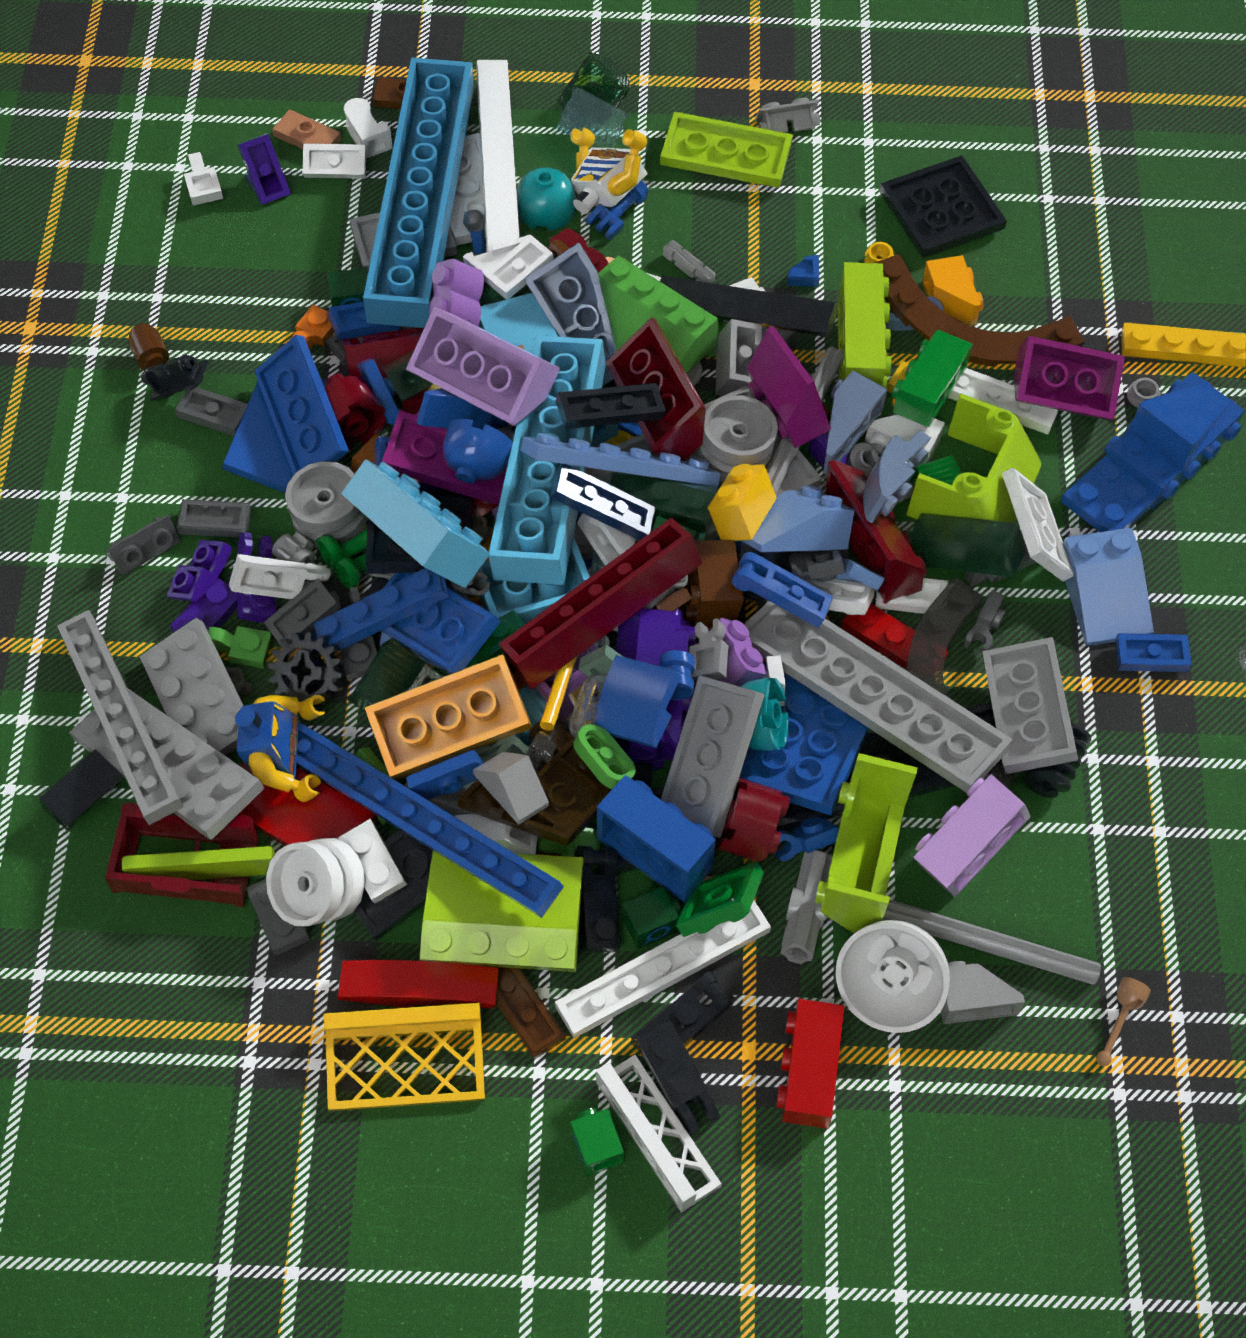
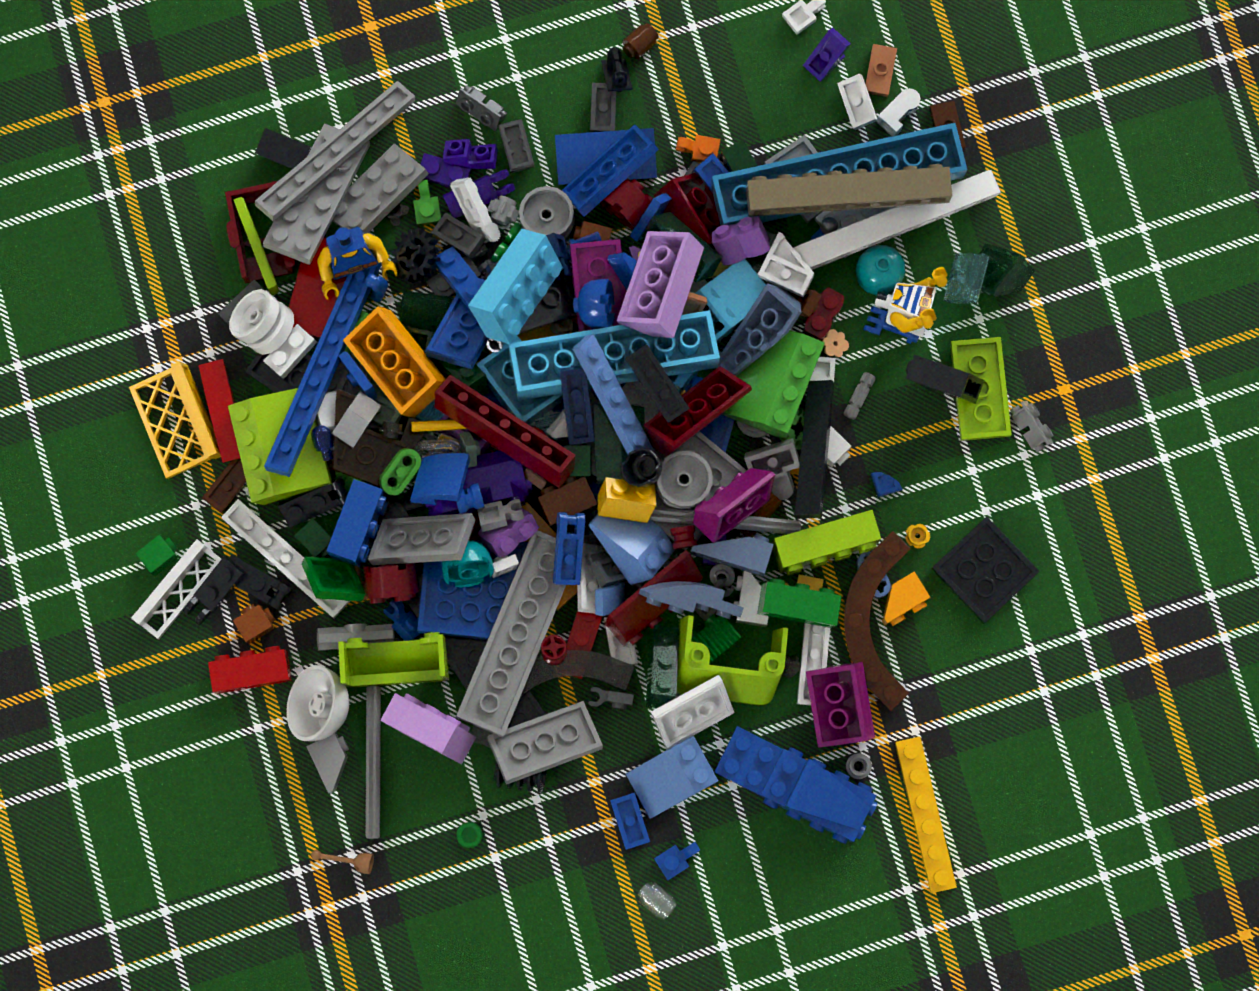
camera: 70 degrees right, 20 degrees up
(328, 725) = (379, 286): none -> blue arm
(446, 168) = (848, 191): none -> dark tan brick
(524, 842) = (323, 441): none -> clear blue cylinder
(708, 160) = (944, 379): none -> black brick
(712, 458) = (641, 467): none -> black hair
(744, 1036) = (254, 622): none -> dark orange brick
(808, 466) = (683, 537): none -> dark red wheel
(905, 645) = (553, 644): none -> dark red wheel
(1123, 851) = (469, 835): none -> green tile
(1213, 621) = (674, 861): none -> blue plate

